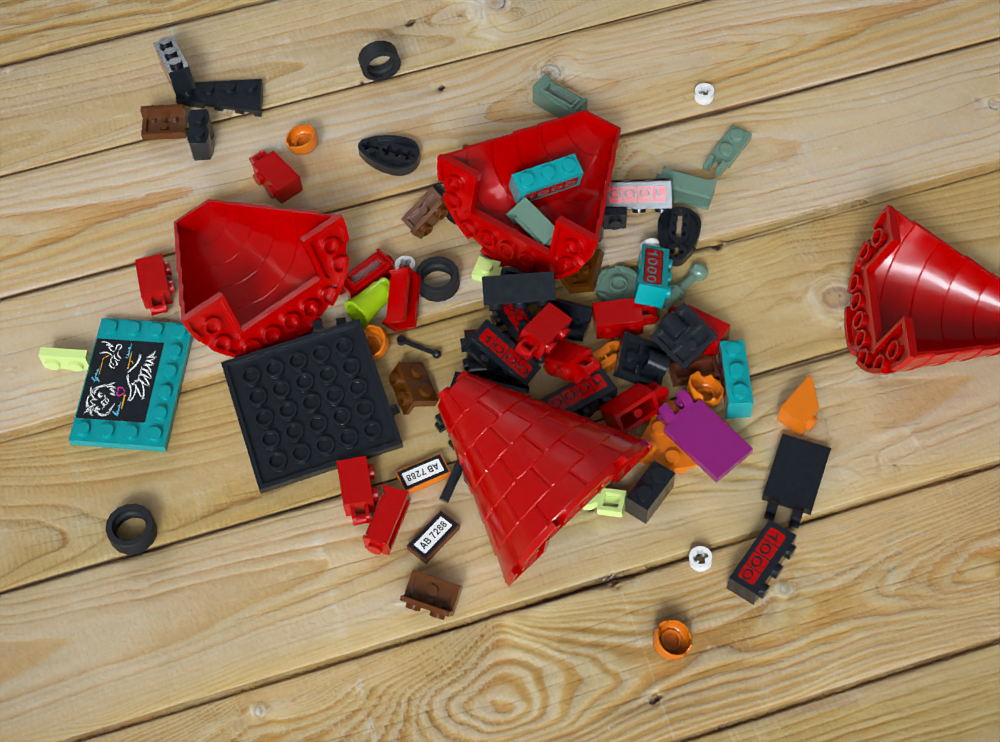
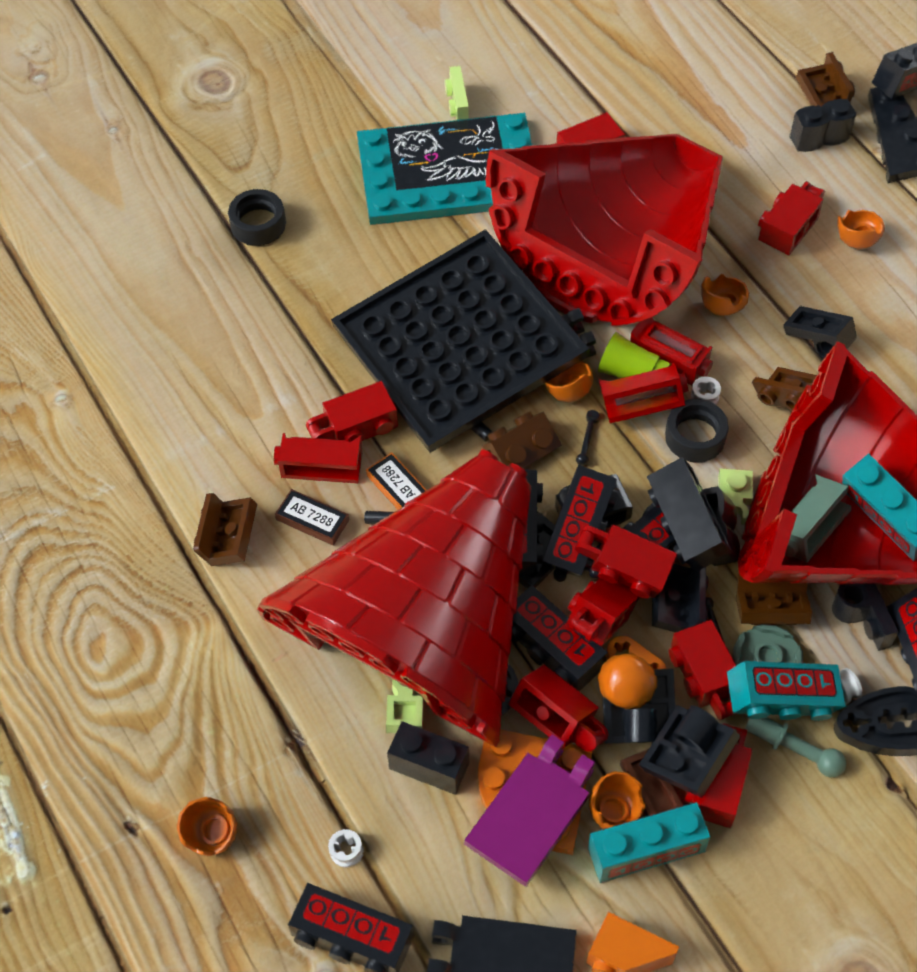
camera: 75 degrees right, 0 degrees up
(378, 152) = (896, 322): black piece -> none
(381, 182) = (822, 328): none -> black plate
(629, 357) = (627, 681): none -> orange hair

